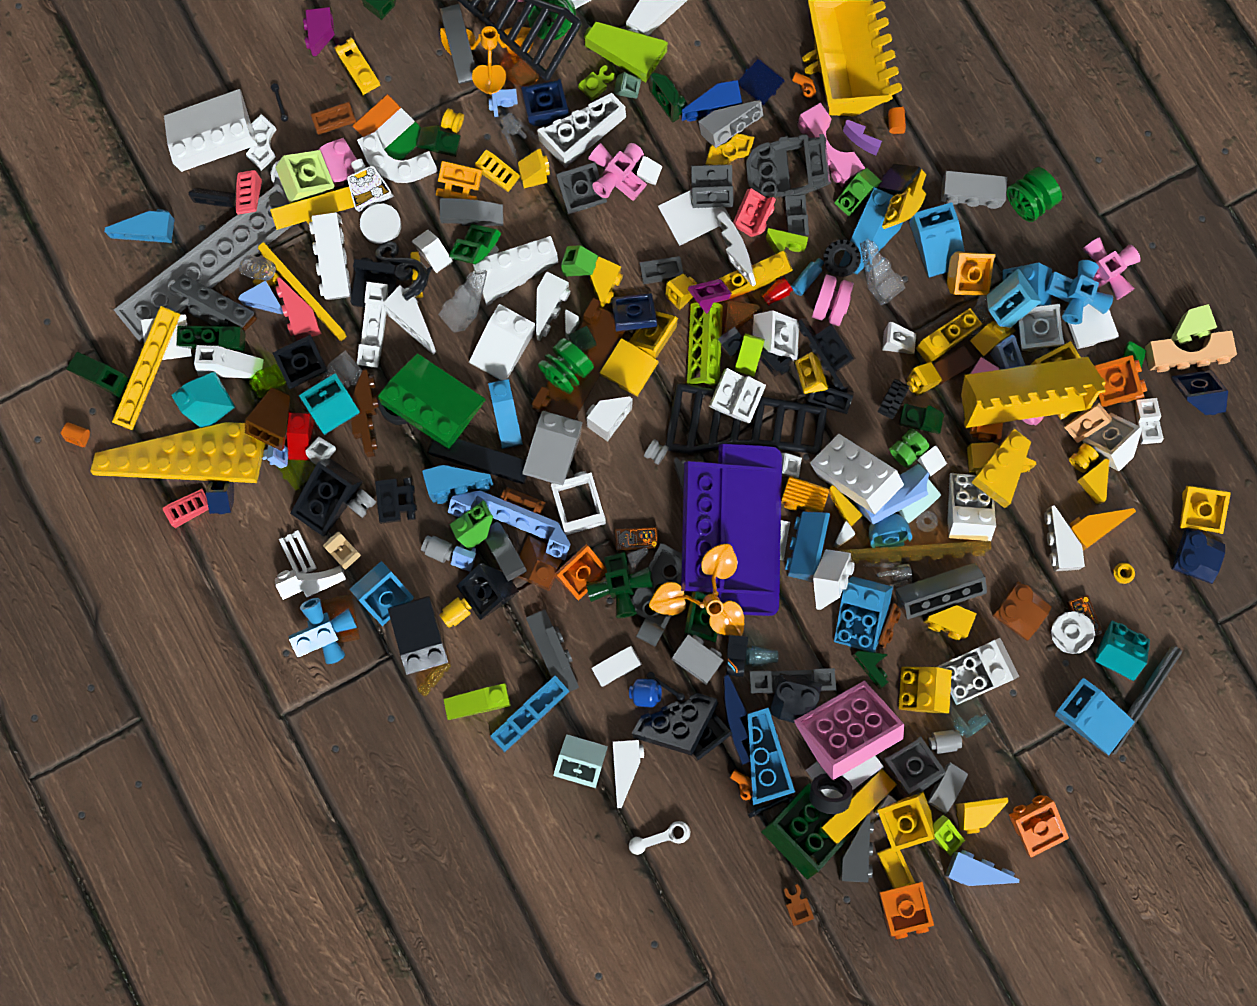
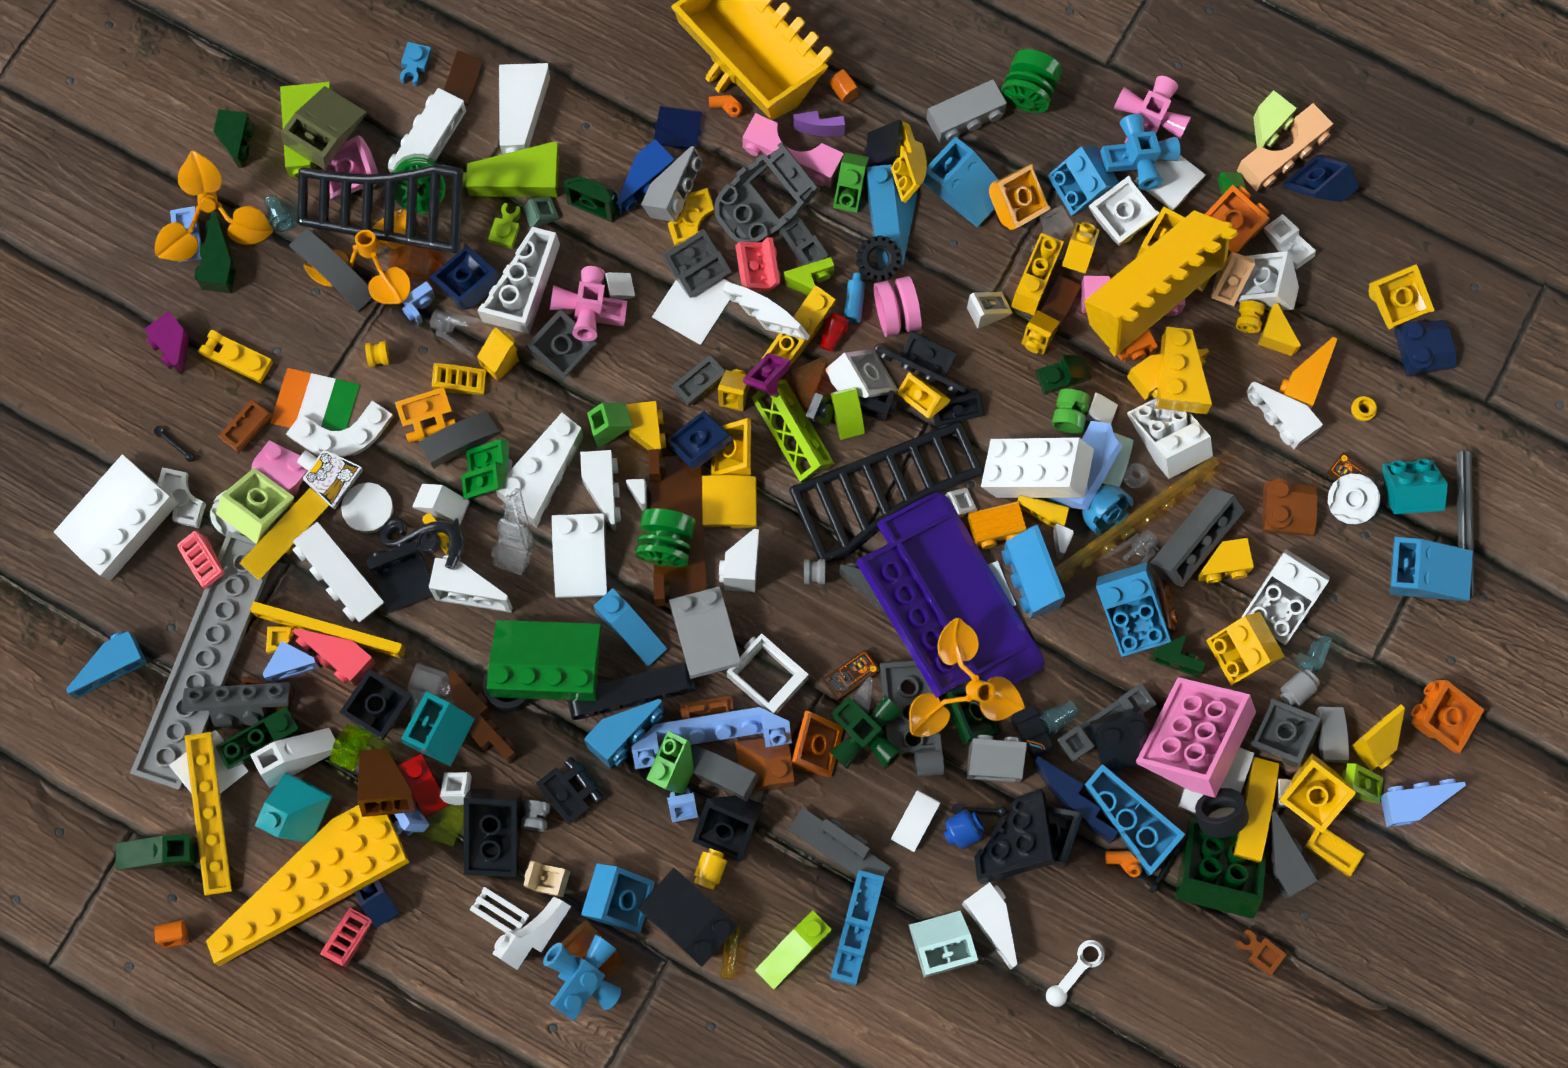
camera: 30 degrees left, 5 degrees down
(212, 197) = (164, 587): black slope -> none
(257, 268) = (265, 631): clear plate -> none
(373, 325) = (428, 618): white slope -> none
(437, 548) = (648, 814): light grey brick -> none
(438, 141) = (374, 385): dark green slope -> none
(583, 339) = (663, 499): clear green plate -> none
(737, 395) = (861, 463): white slope -> none
(831, 577) = (1081, 589): white slope -> none
(880, 277) = (930, 255): clear slope -> none
(893, 399) = (1023, 370): black tyre -> none
(906, 910) = (1373, 885): orange plate -> none
(1007, 354) = (1108, 257): light blue slope -> none
(1012, 300) = (1078, 199): medium azure slope -> none

